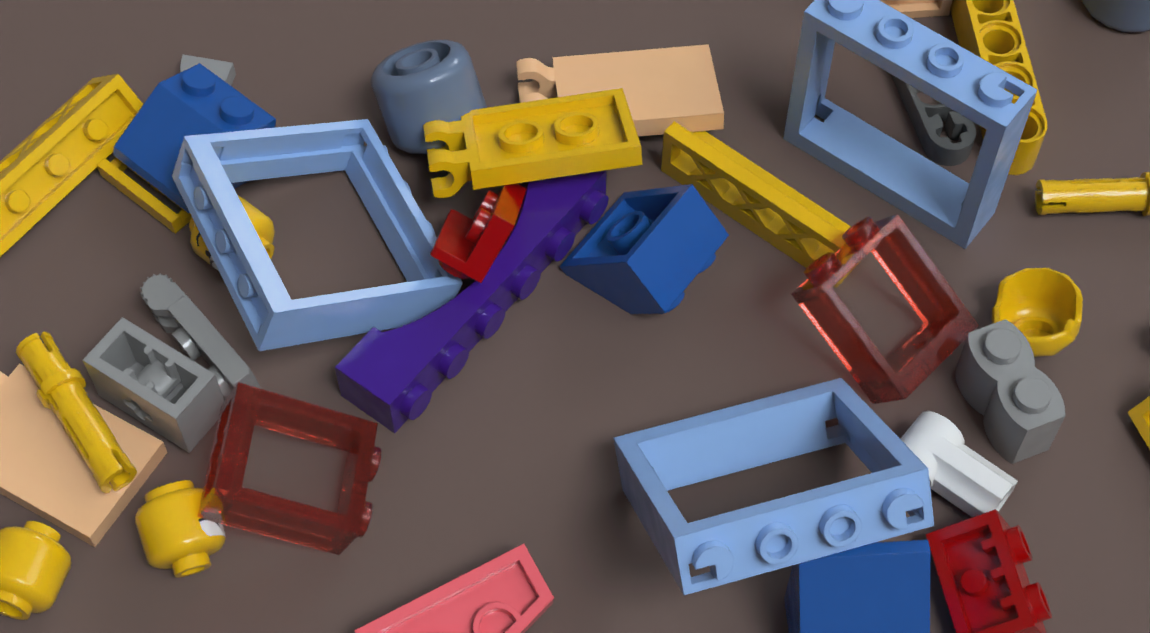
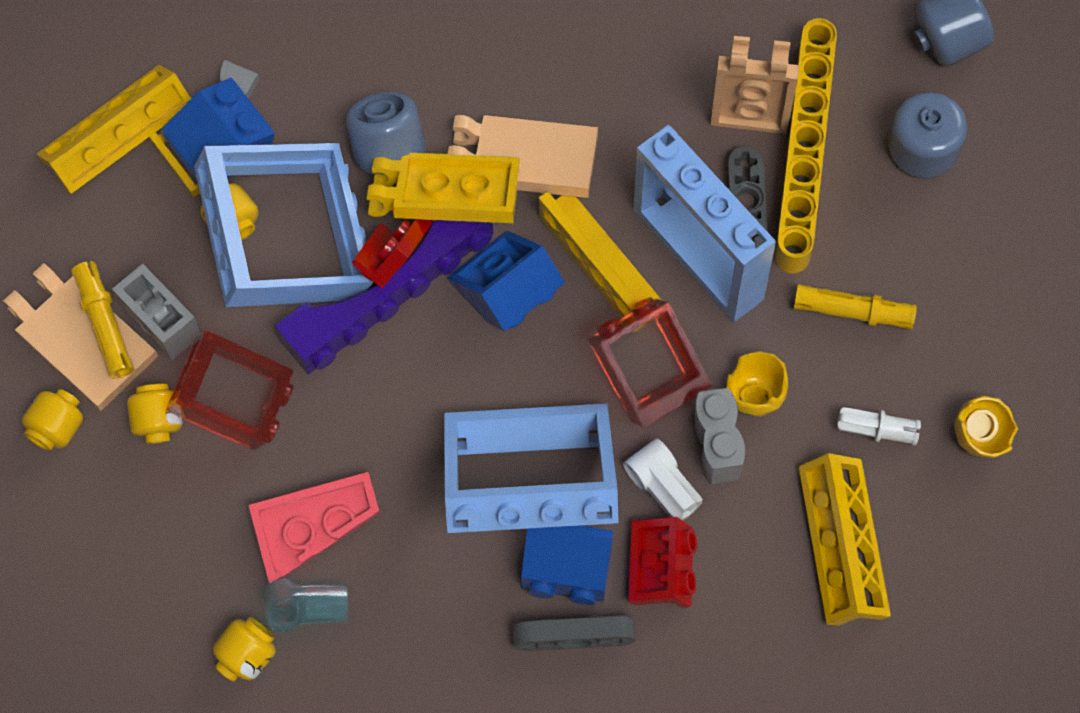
camera: 15 degrees right, 10 degrees up
(195, 332) = (193, 283): light grey hinge -> none

